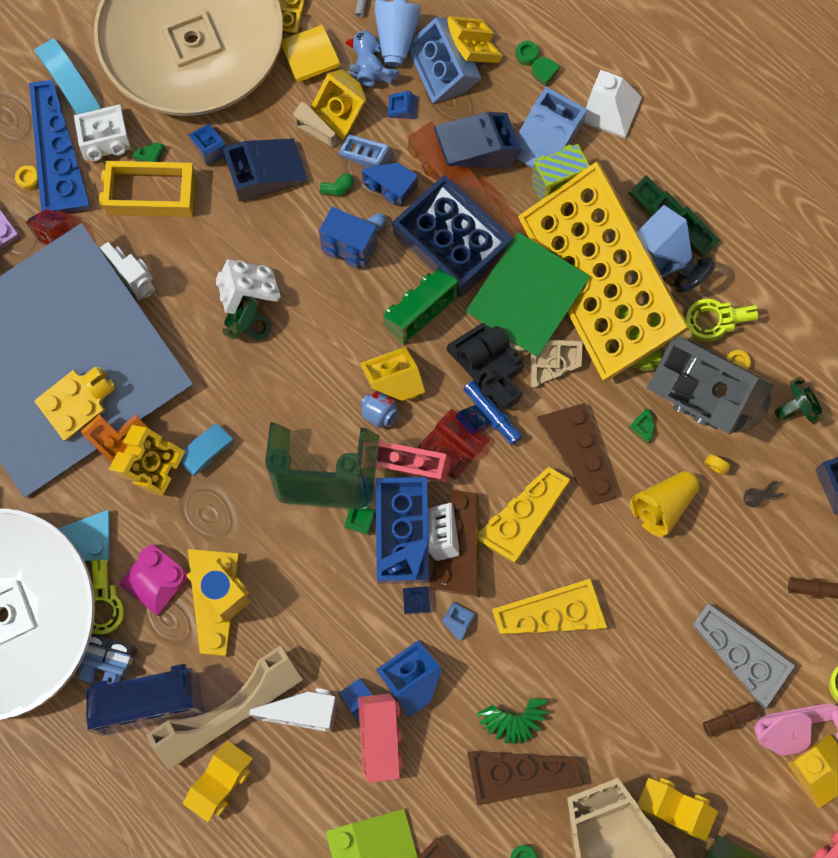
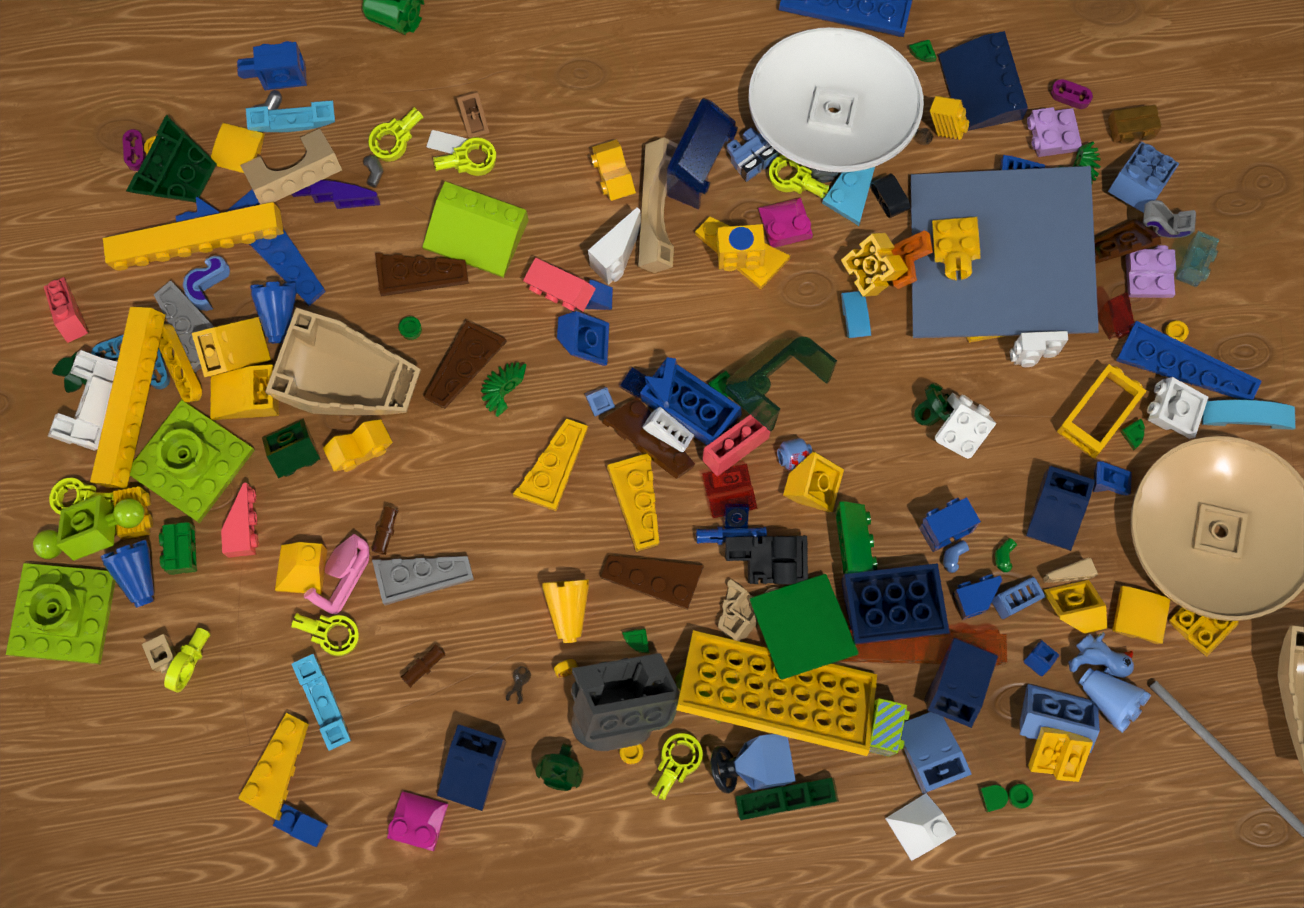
camera: 130 degrees right, 0 degrees up
(60, 500) = (890, 195): none -> black beam

